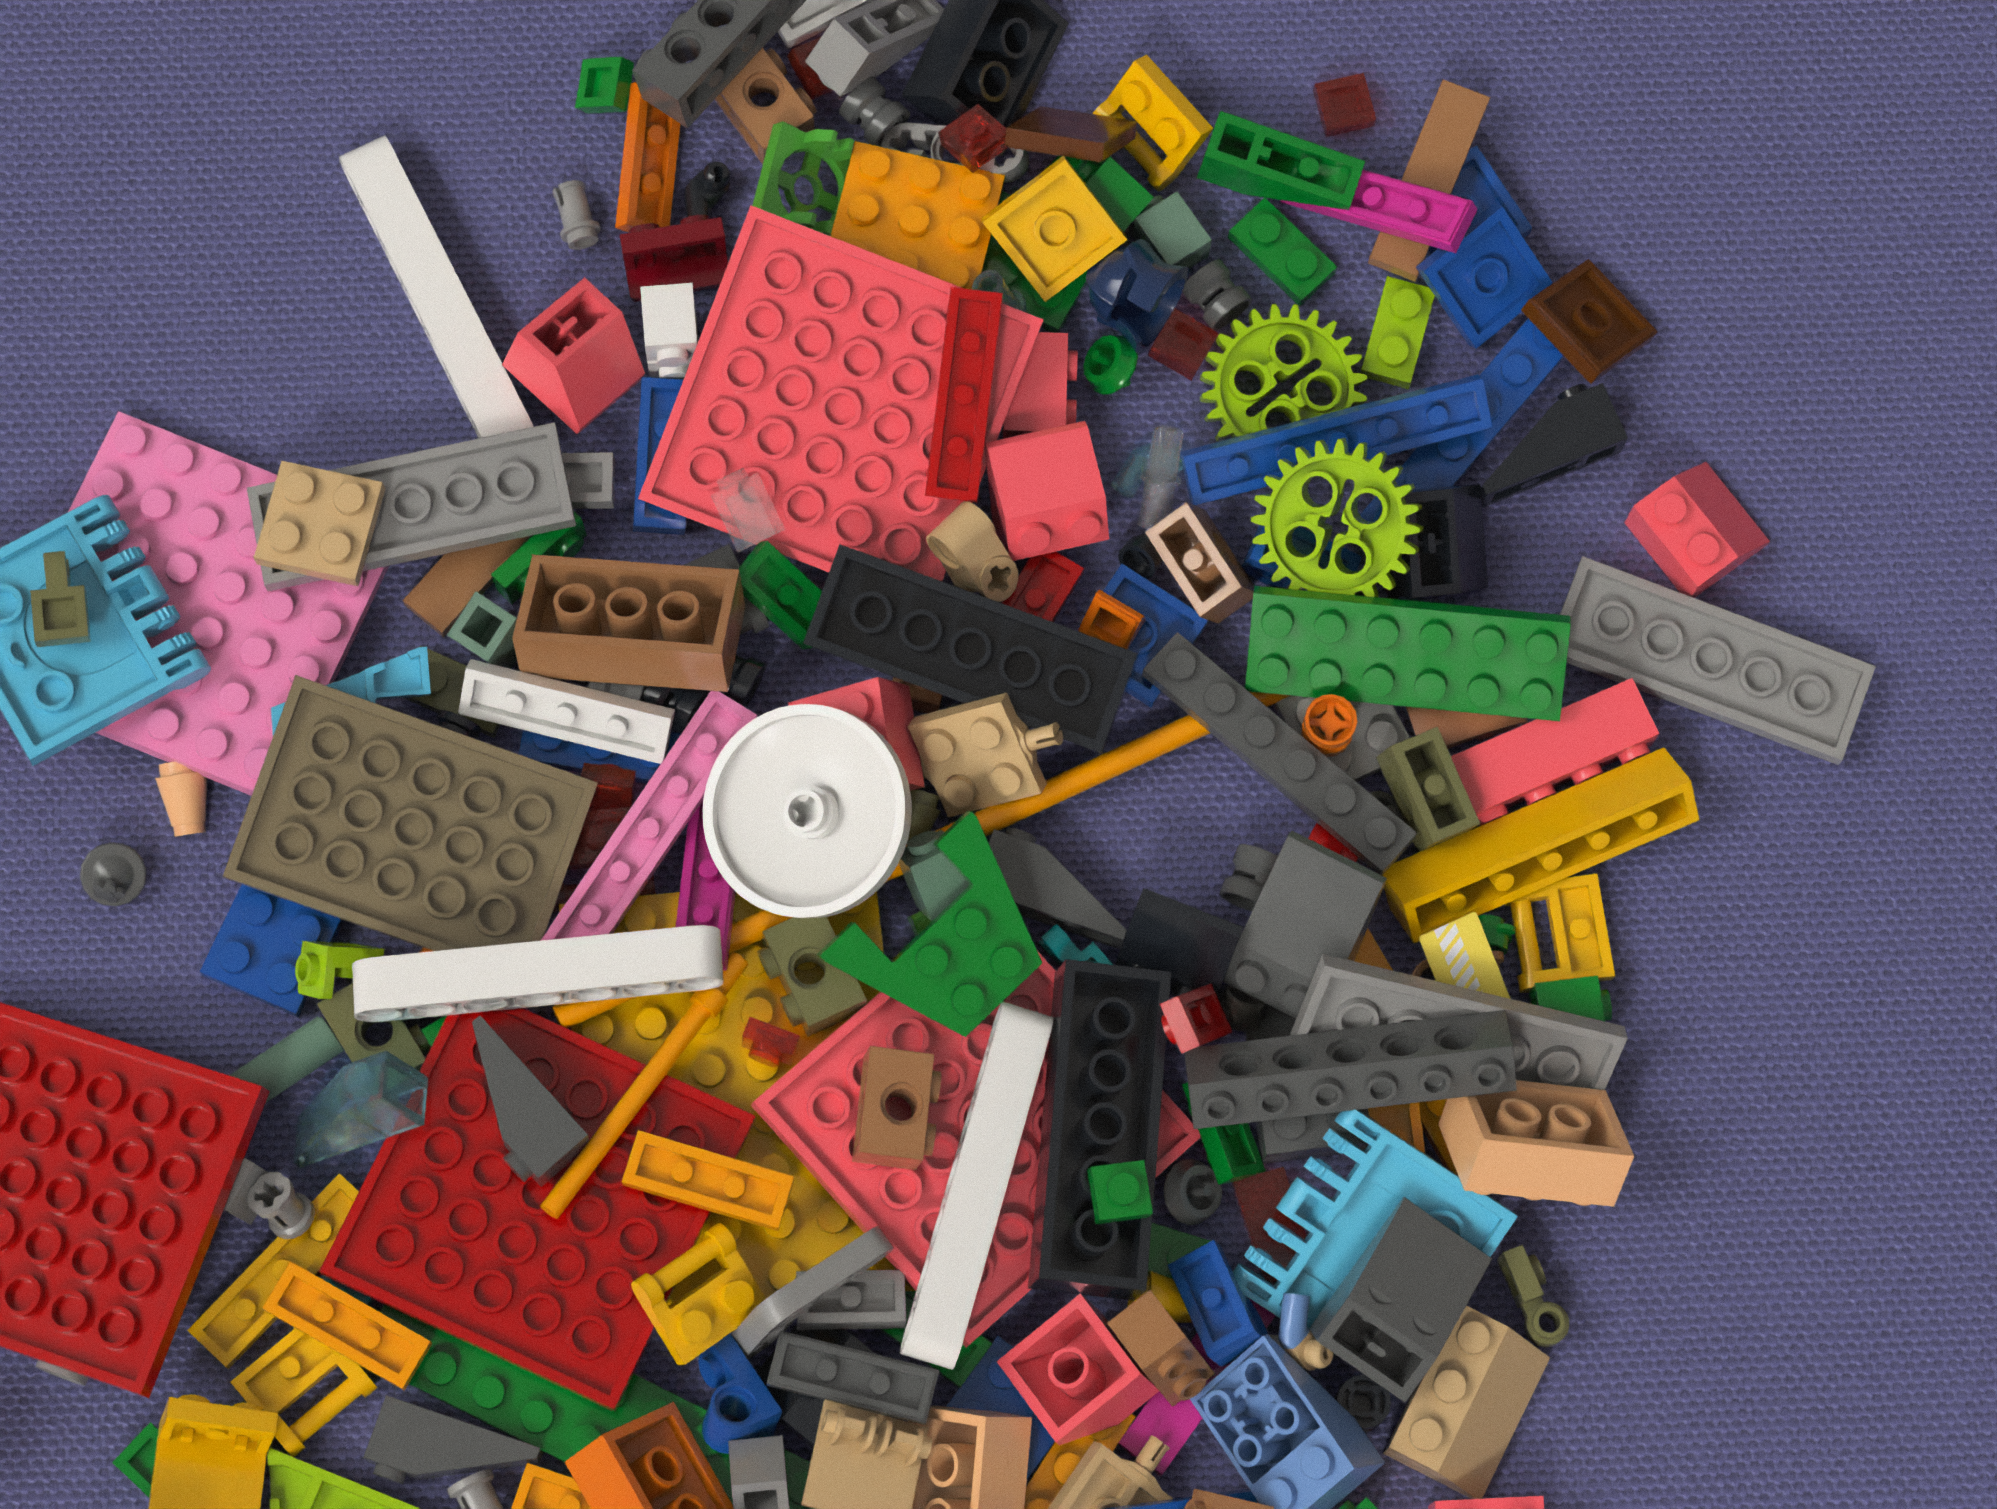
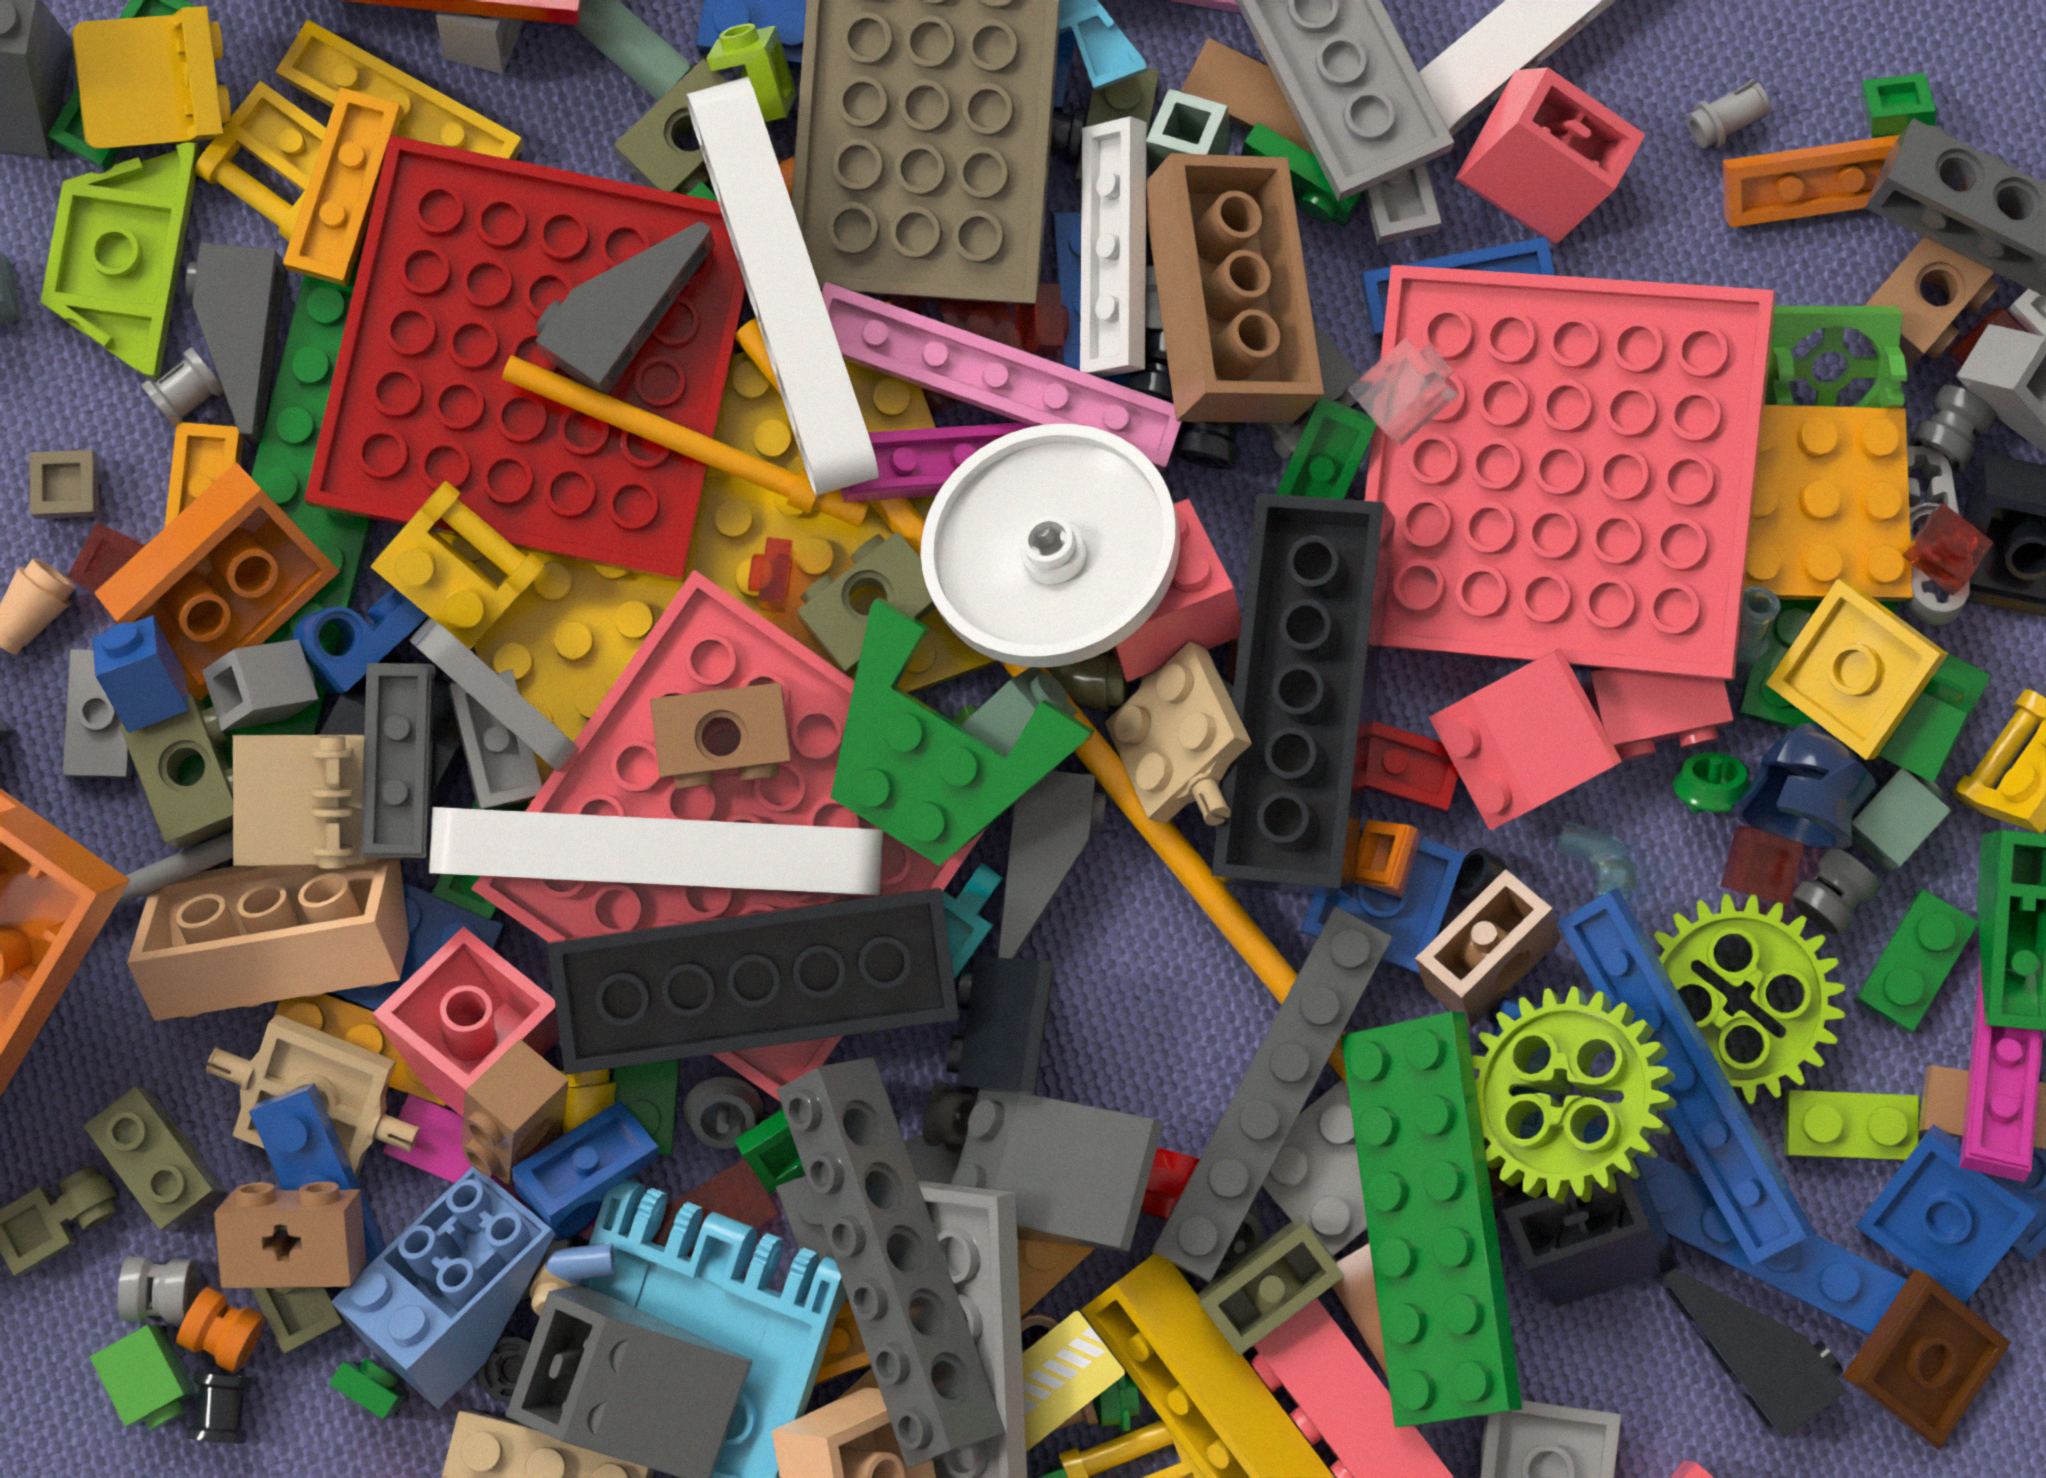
camera: 85 degrees right, 5 degrees up
(291, 1207) = (465, 69): light grey bush -> none
(361, 1106) = (589, 137): clear light blue slope -> none
(669, 329) = (1611, 243): white piece -> none
(675, 254) = (1702, 233): dark red bracket -> none
(706, 189) = (1794, 254): black arm -> none
(708, 1180) = (586, 539): light orange plate -> none
(963, 394) = (1611, 604): red plate -> none
(973, 553) = (1424, 671): tan piece -> none
(1070, 134) = (1986, 662): reddish brown tile -> none
(1120, 1192) = (671, 1015): green plate -> none
(1160, 475) = (1585, 874): clear axle -> none
(1194, 1019) = (908, 1060): red plate -> none
(1249, 876) = (1129, 1090): dark grey wheel -> none
(1330, 714) = (1327, 1139): orange wheel -> none

